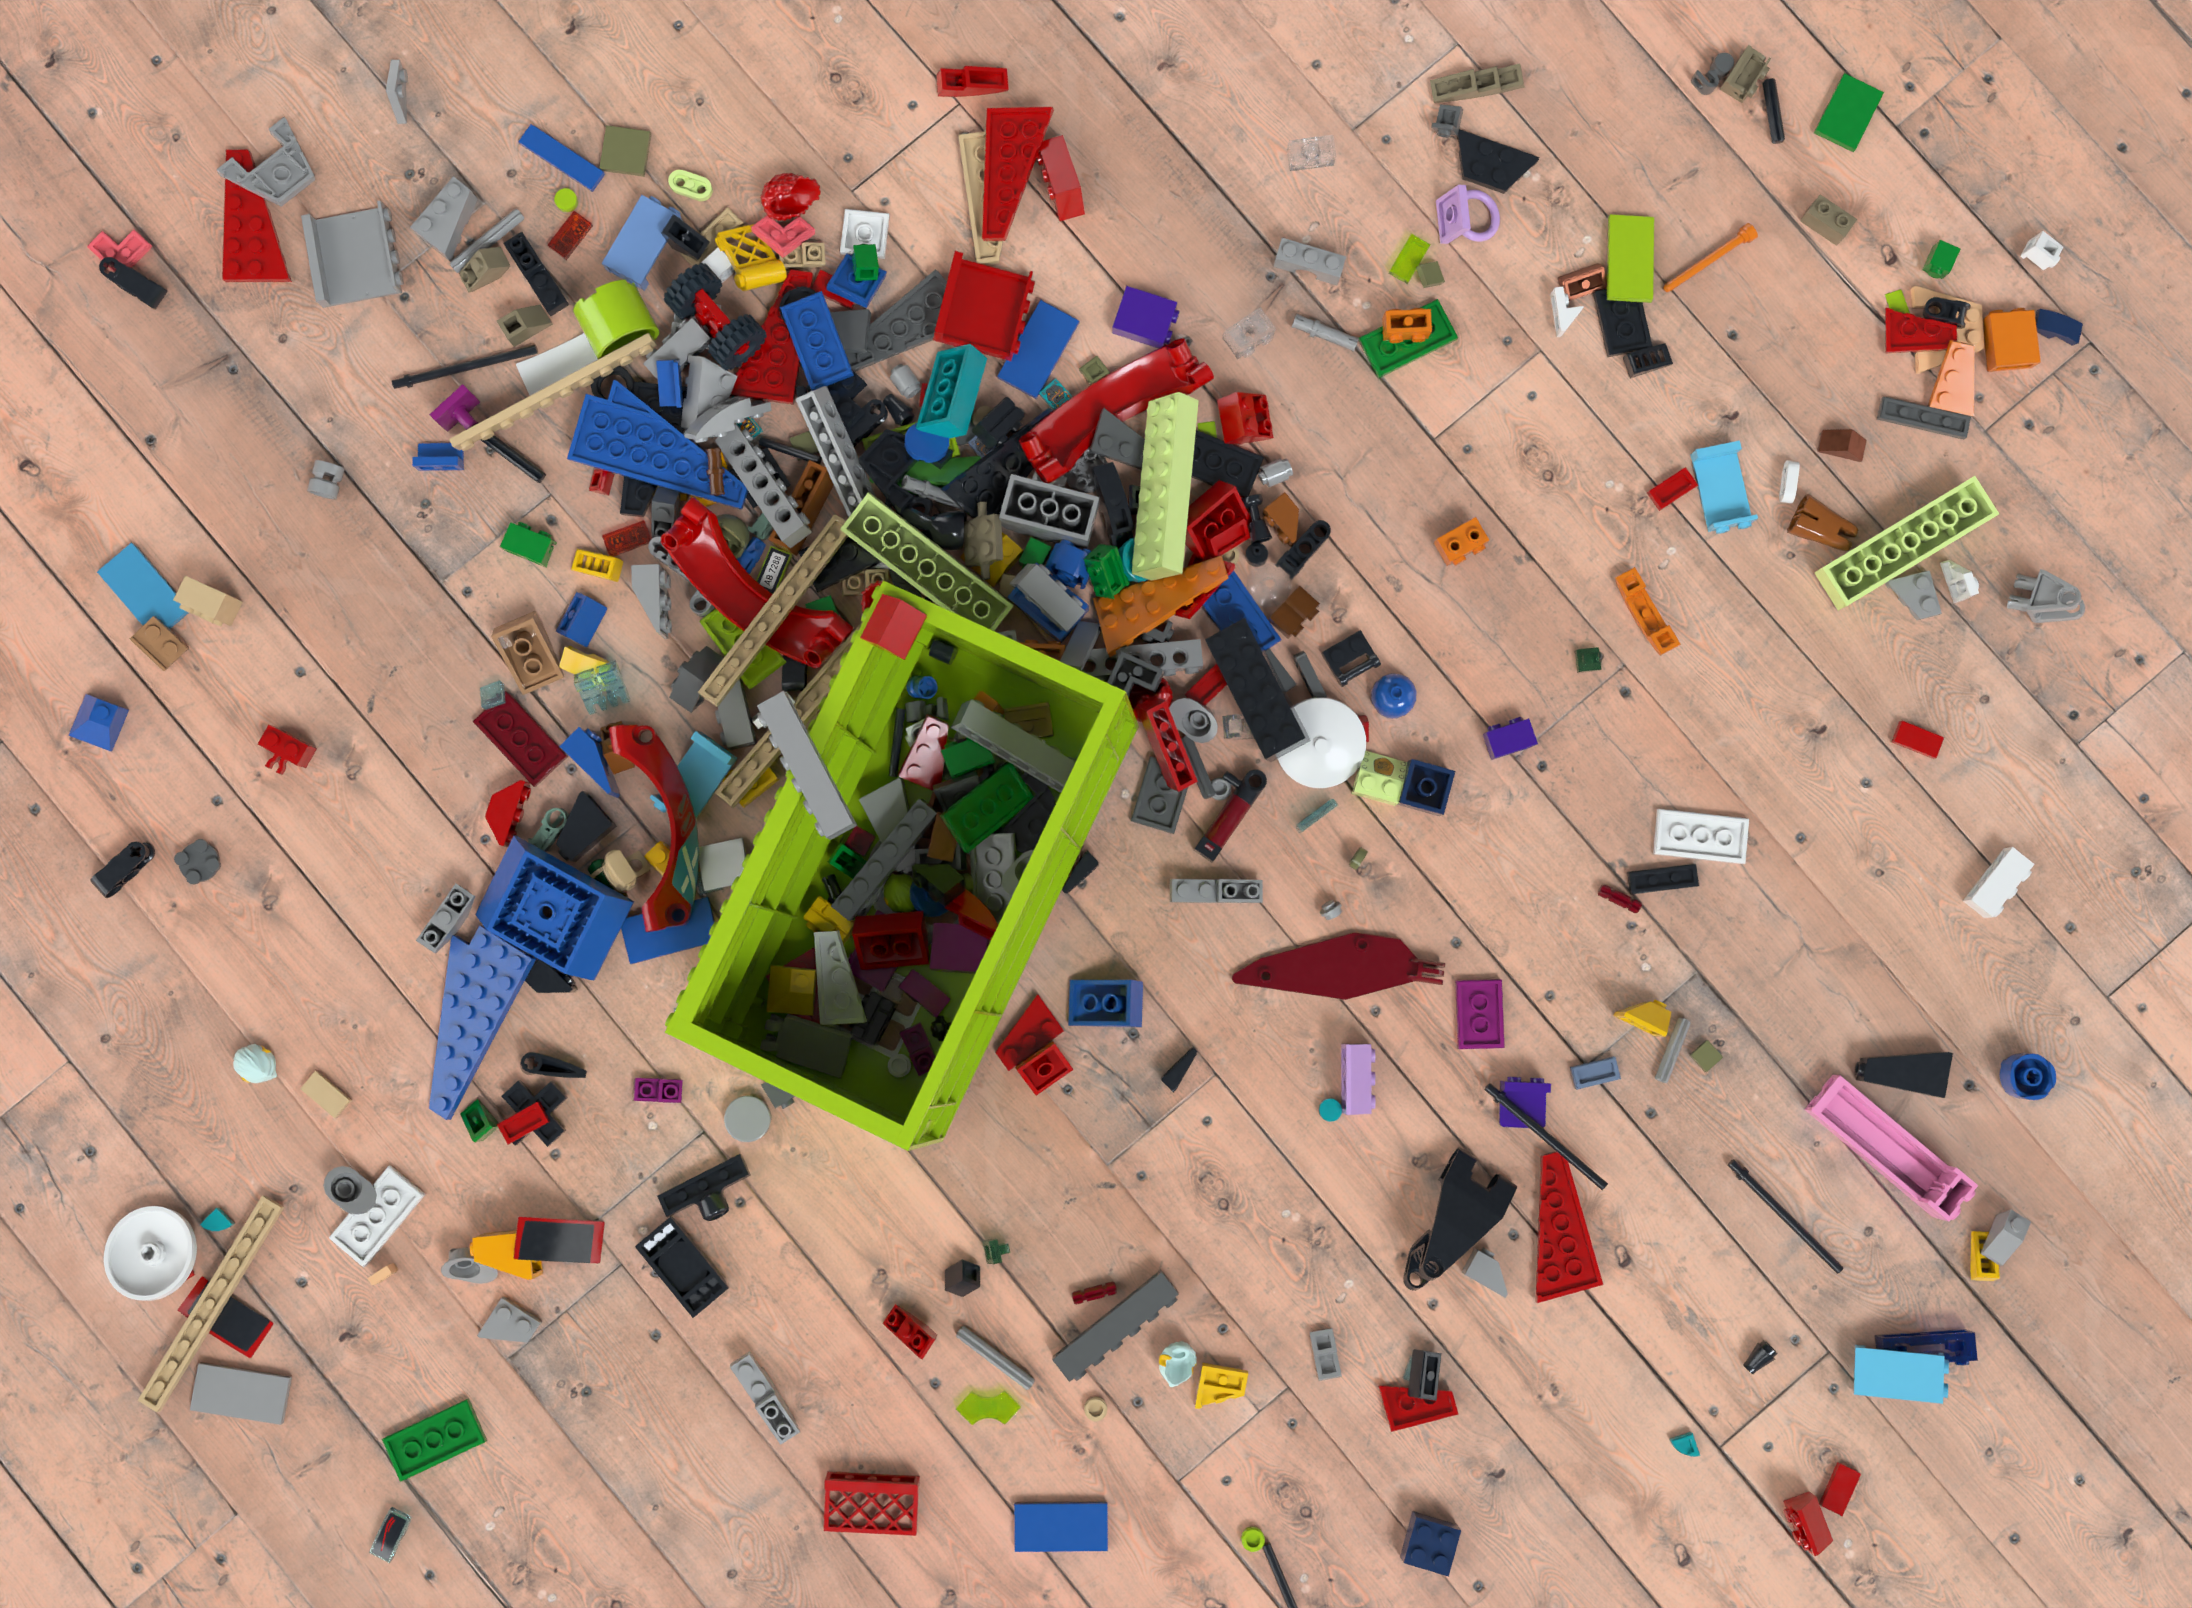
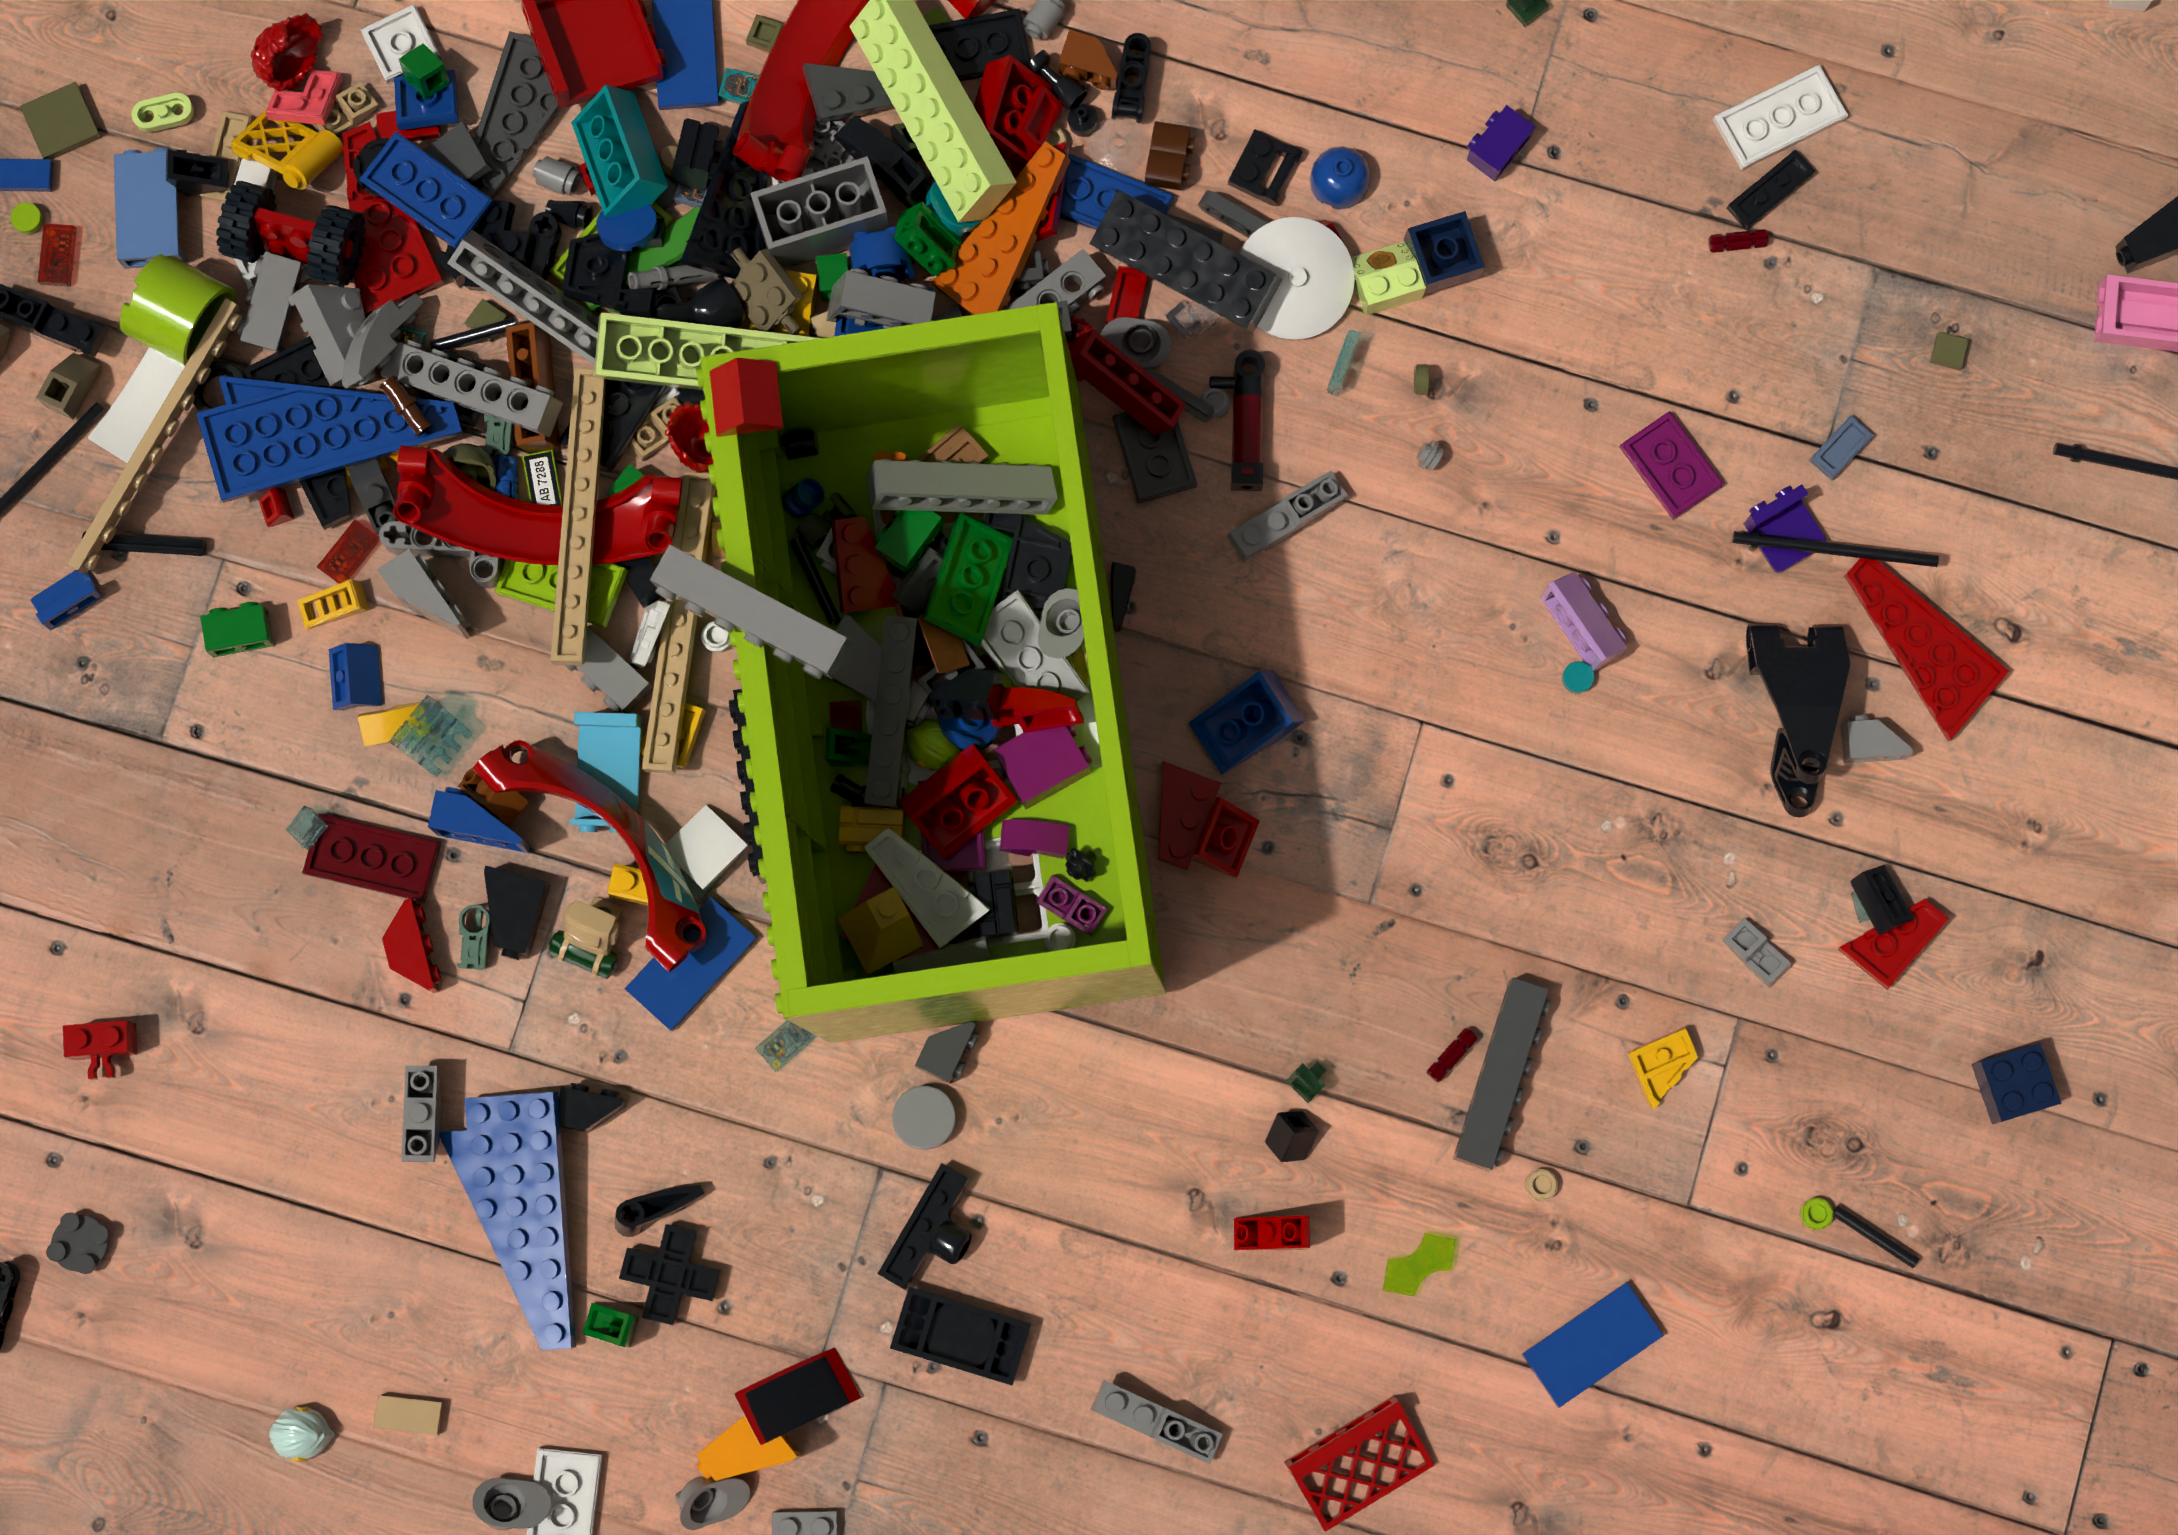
camera: 35 degrees left, 5 degrees down
(456, 409) = (53, 528): magenta tile -> none
(523, 1123) = (665, 1291): red tile -> none
(527, 652) = (317, 753): medium nougat slope -> none
(583, 910) = (585, 1016): blue slope -> none
(658, 1090) = (797, 1154): magenta slope -> none
(669, 383) = (286, 342): blue panel -> none
(692, 677) = (531, 651): dark grey brick -> none
(995, 1358) = (1389, 1202): light grey axle -> none
(1175, 1074) = (1379, 748): black slope -> none
(1177, 1363) = (1598, 1069): light aqua hair -> none
(1341, 967) = (1484, 511): dark red wing -> none
(1647, 1016) = (1858, 348): yellow slope -> none
(1672, 1050) = (1908, 367): light grey axle -> none

